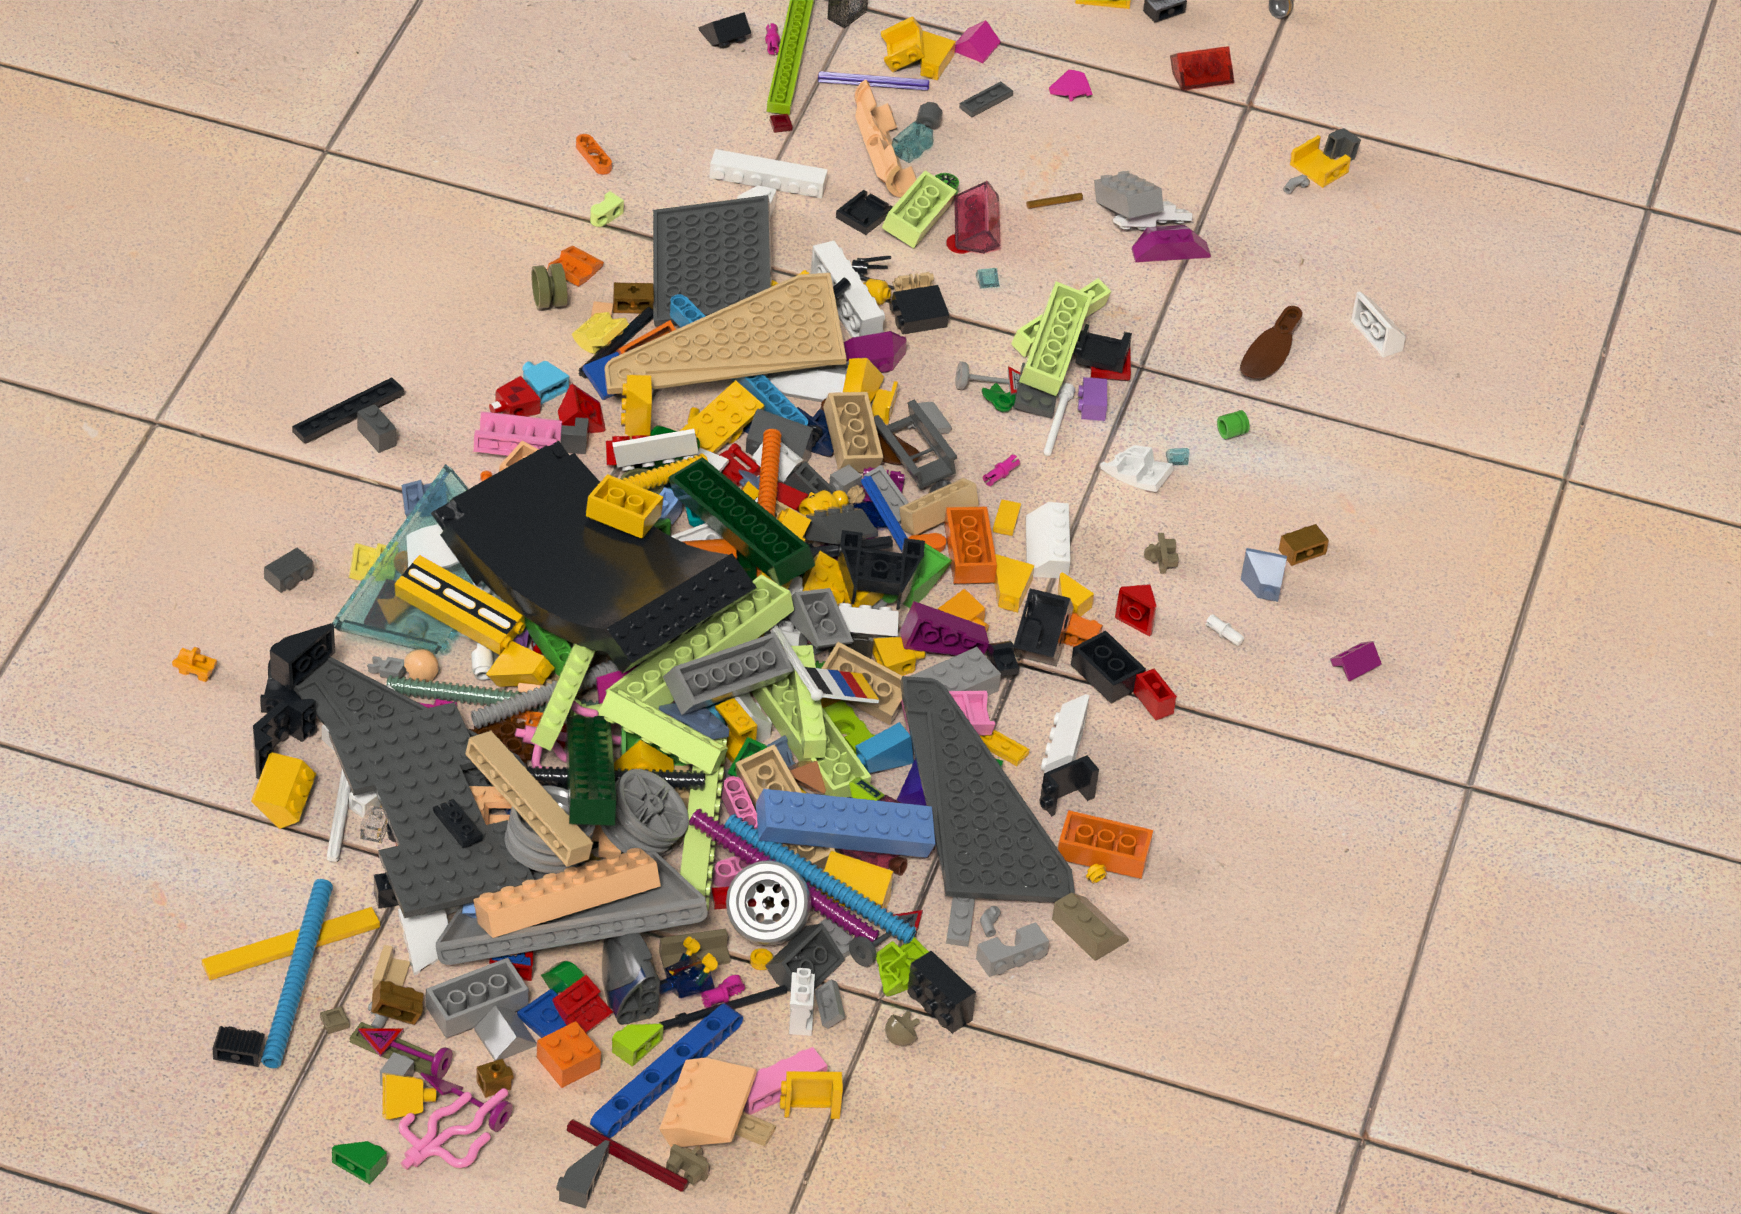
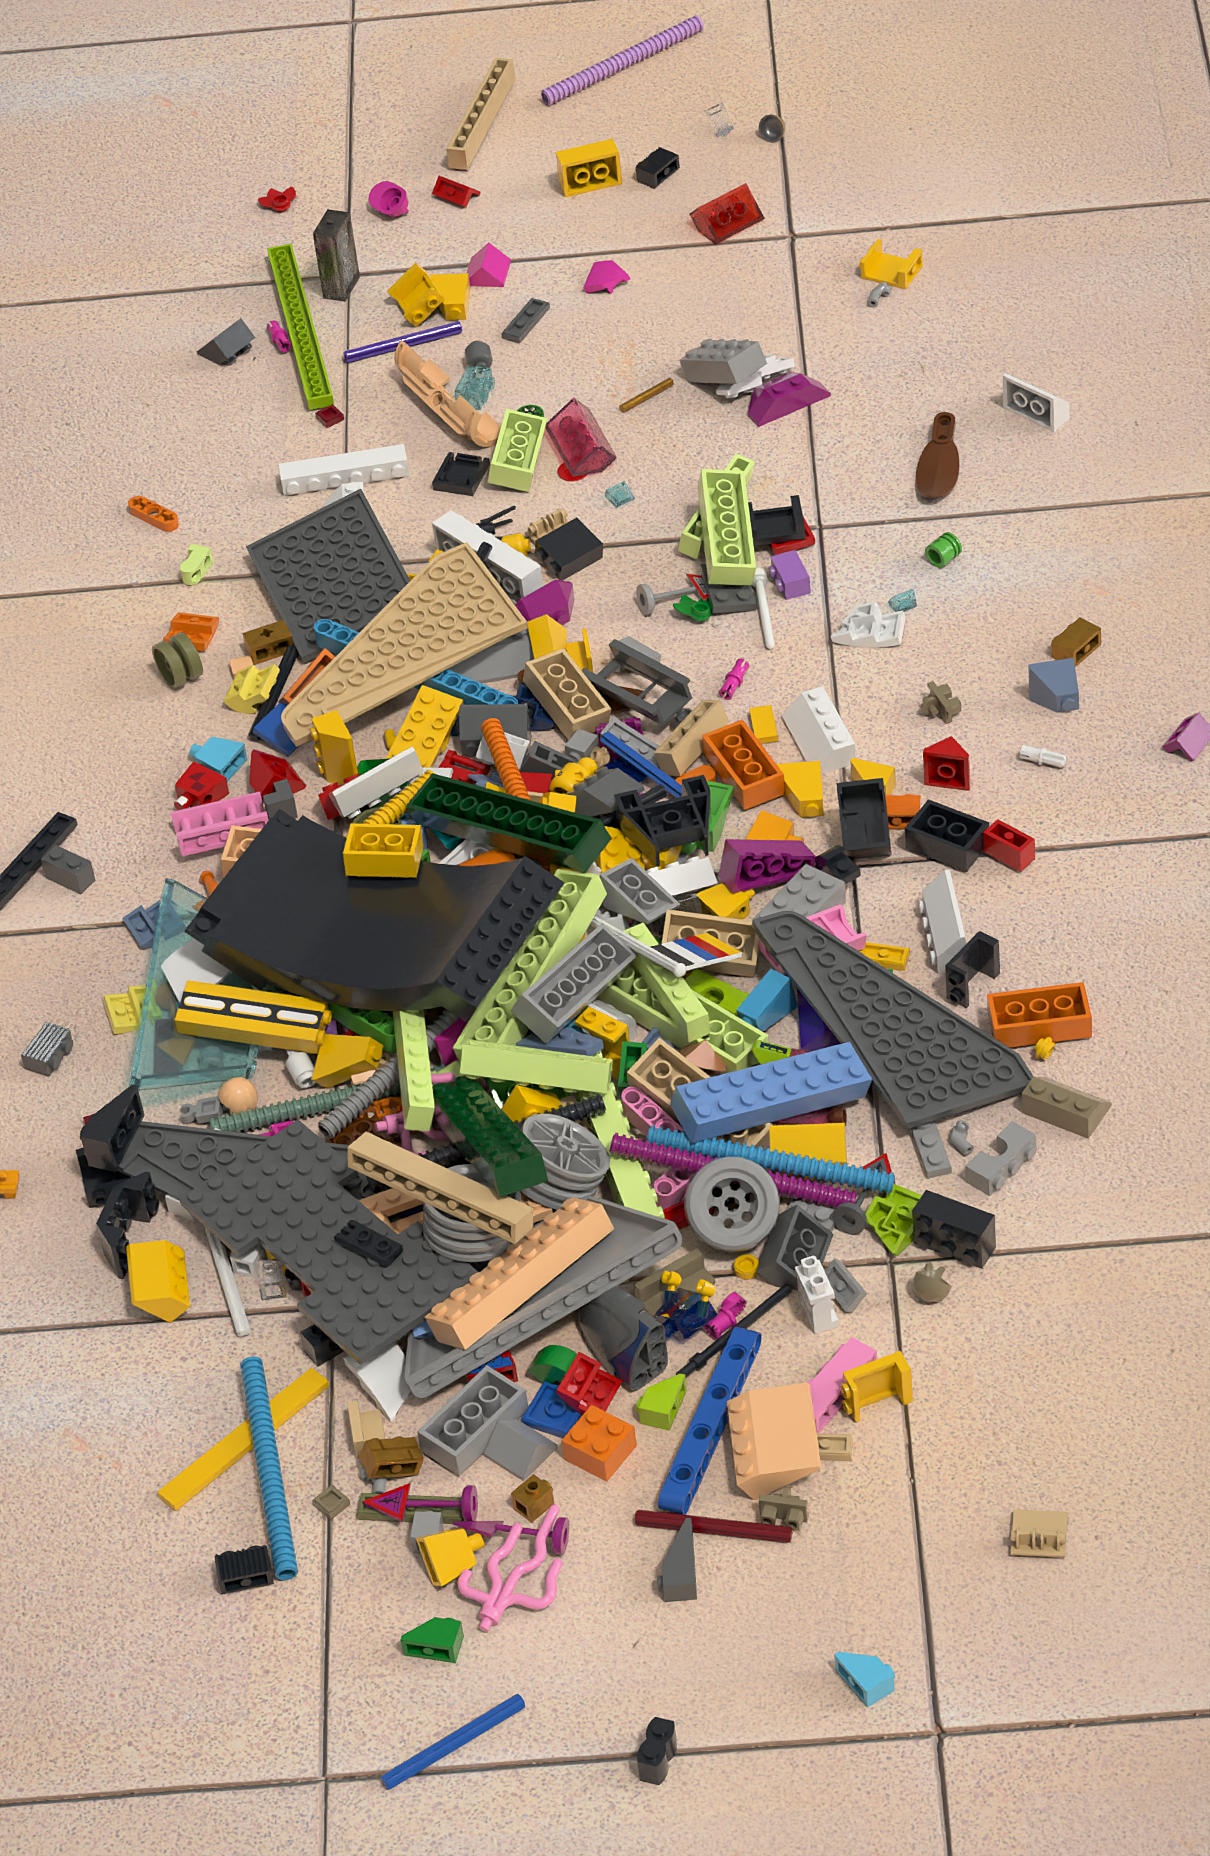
camera: 10 degrees left, 0 degrees up
(1341, 143) = (904, 239): dark grey piece -> none

